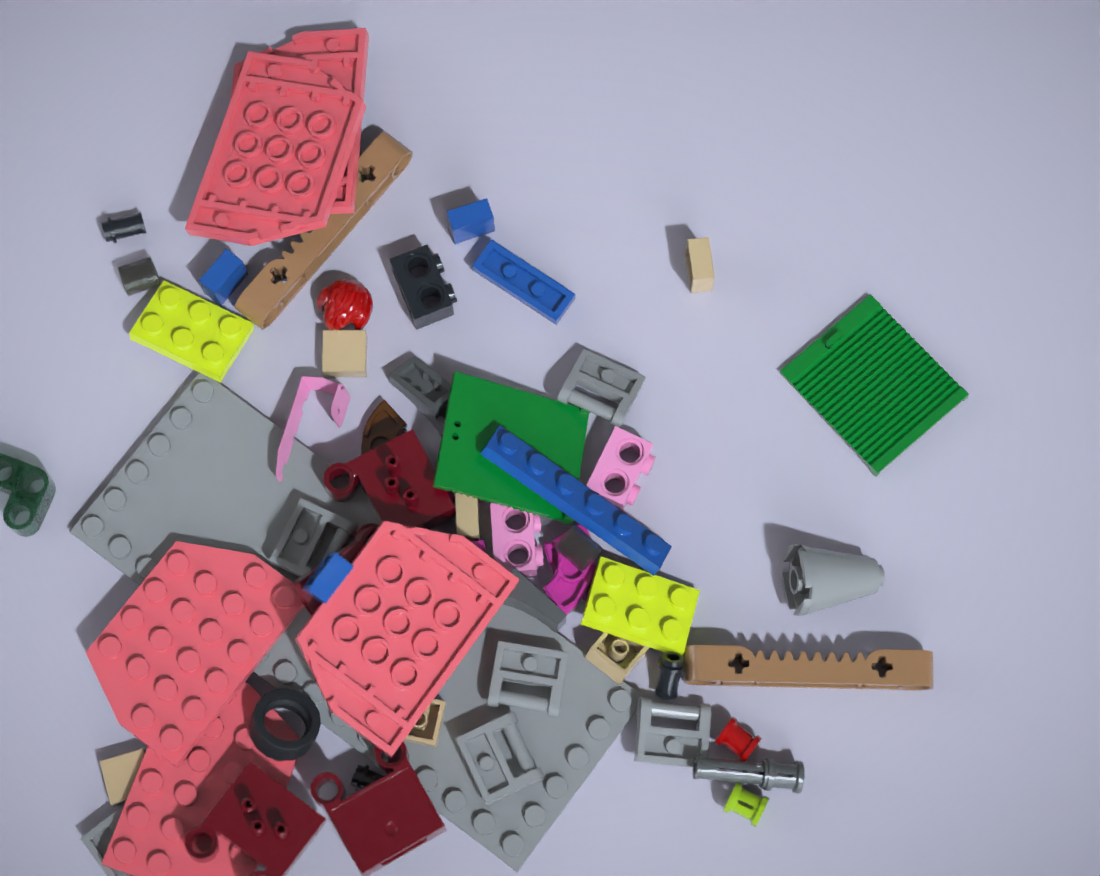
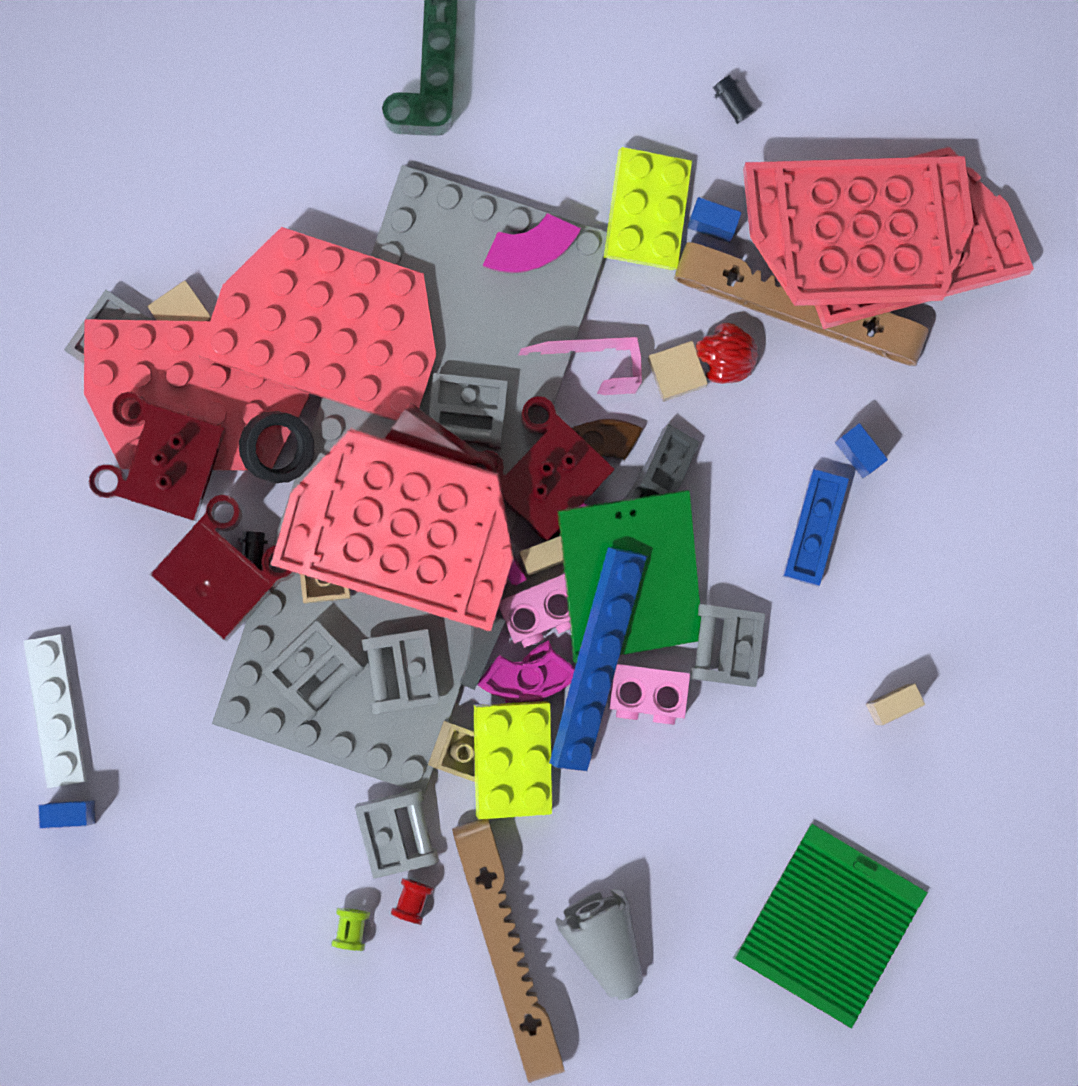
camera: 65 degrees right, 10 degrees up
(139, 276) = (687, 134): clear smoke beam -> none
(190, 439) = (531, 249): none -> dark pink tile
(327, 577) = (419, 439): blue piece -> none
(417, 288) = (768, 419): black brick -> none
(578, 548) = (548, 678): clear smoke beam -> none
(671, 667) = (460, 811): black pin -> none
(767, 777) = (385, 939): dark grey pin -> none

